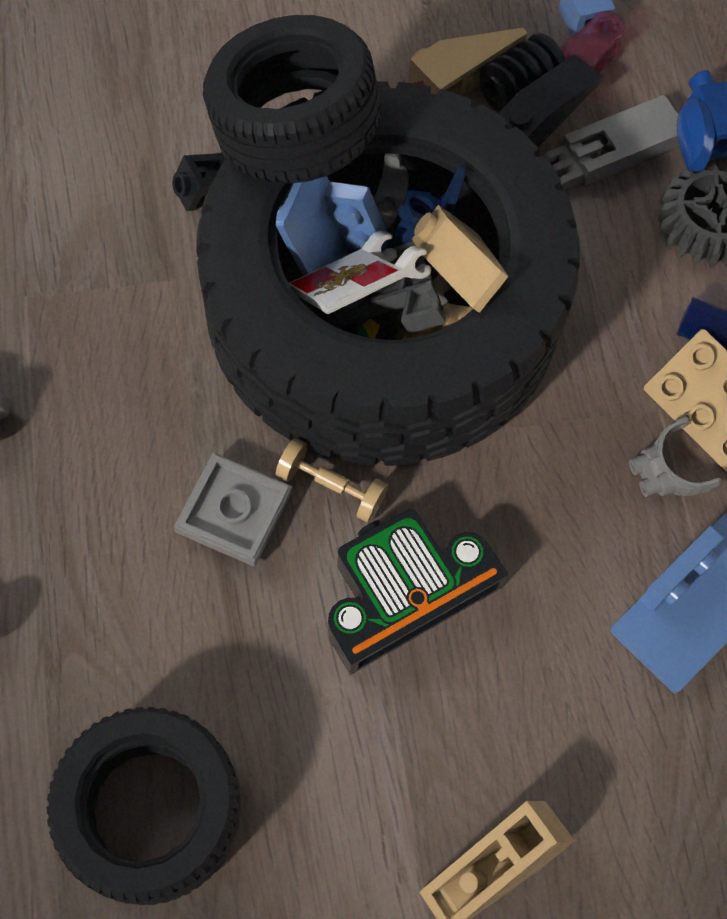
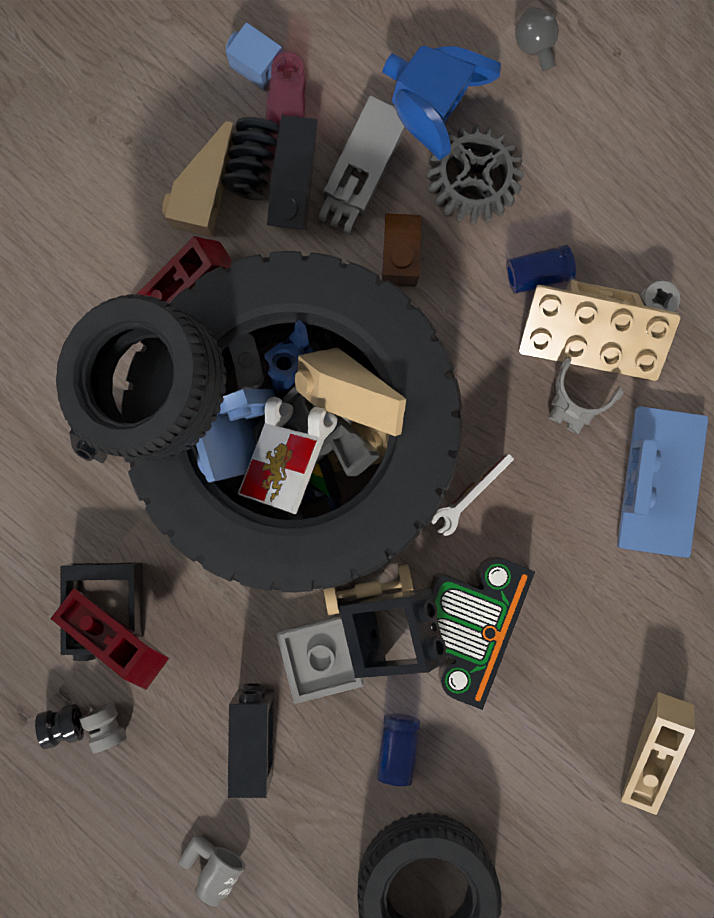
camera: 35 degrees left, 20 degrees up
(67, 330) = (110, 640): none -> dark red slope
(75, 272) = (70, 578): none -> black window
(106, 518) = (250, 742): none -> black window
(235, 648) = (398, 749): none -> clear blue piece
(296, 509) = (365, 640): none -> black window
(500, 457) = (452, 512): none -> white flag
(599, 226) = (401, 249): none -> reddish brown slope

